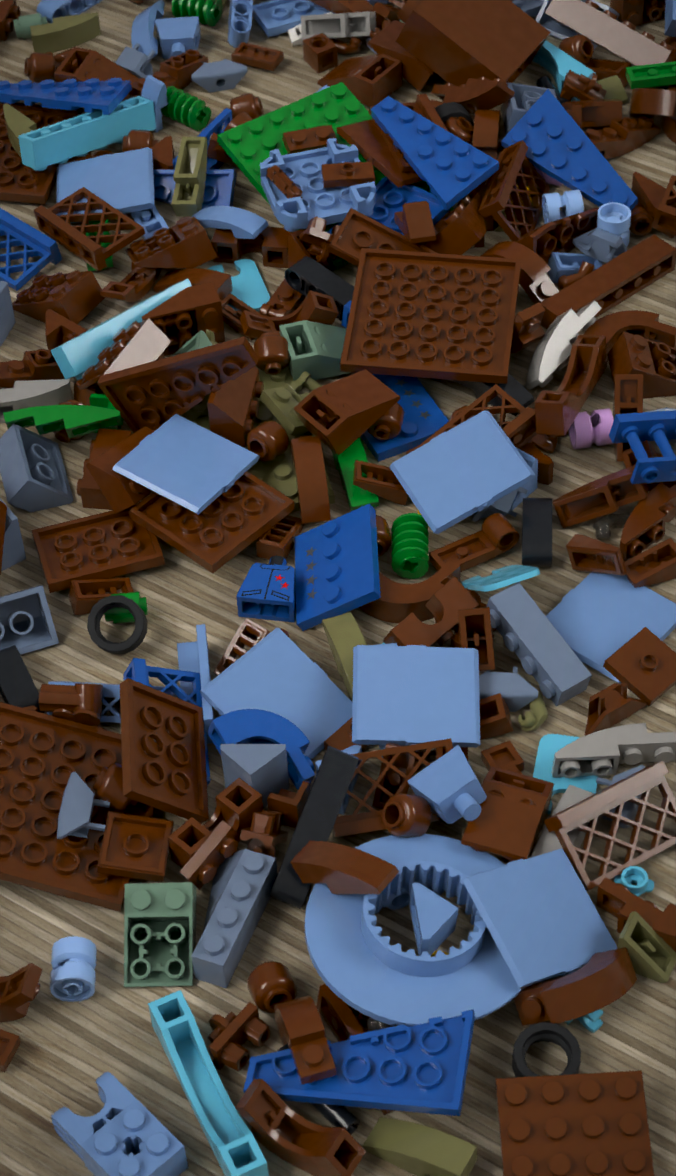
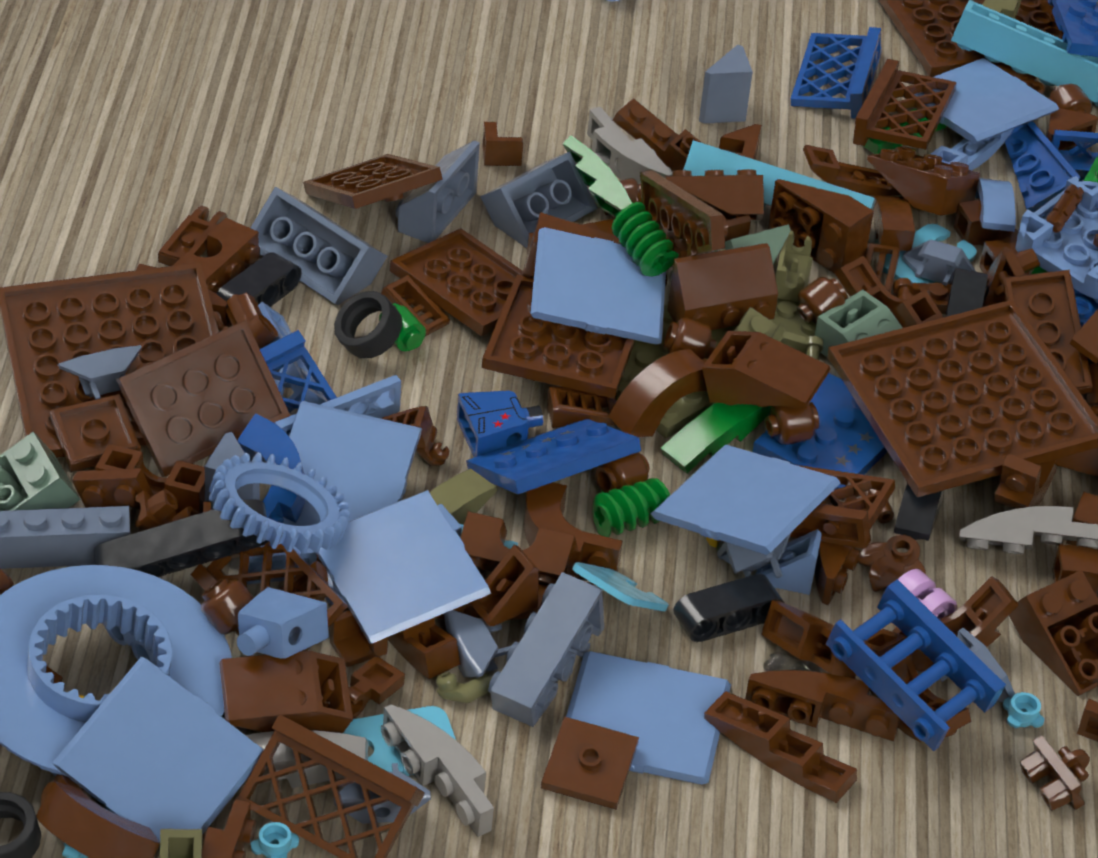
camera: 55 degrees right, 5 degrees down
(67, 294) = (788, 131): reddish brown slope -> none
(169, 412) = (644, 240): none -> green piece
(190, 176) = (1040, 149): olive slope -> none
(258, 281) = (936, 261): none -> sand blue piece
(343, 868) = (118, 568): reddish brown slope -> none
(372, 717) = (241, 471): none -> medium blue piece
(385, 485) = (694, 455): reddish brown slope -> none
(431, 918) = (91, 661): medium blue slope -> none
(494, 539) = (670, 564): reddish brown plate -> none
(559, 408) = (1018, 562): reddish brown arch -> none
(583, 552) = (718, 659): reddish brown slope -> none
(611, 707) = (507, 748): reddish brown piece -> none

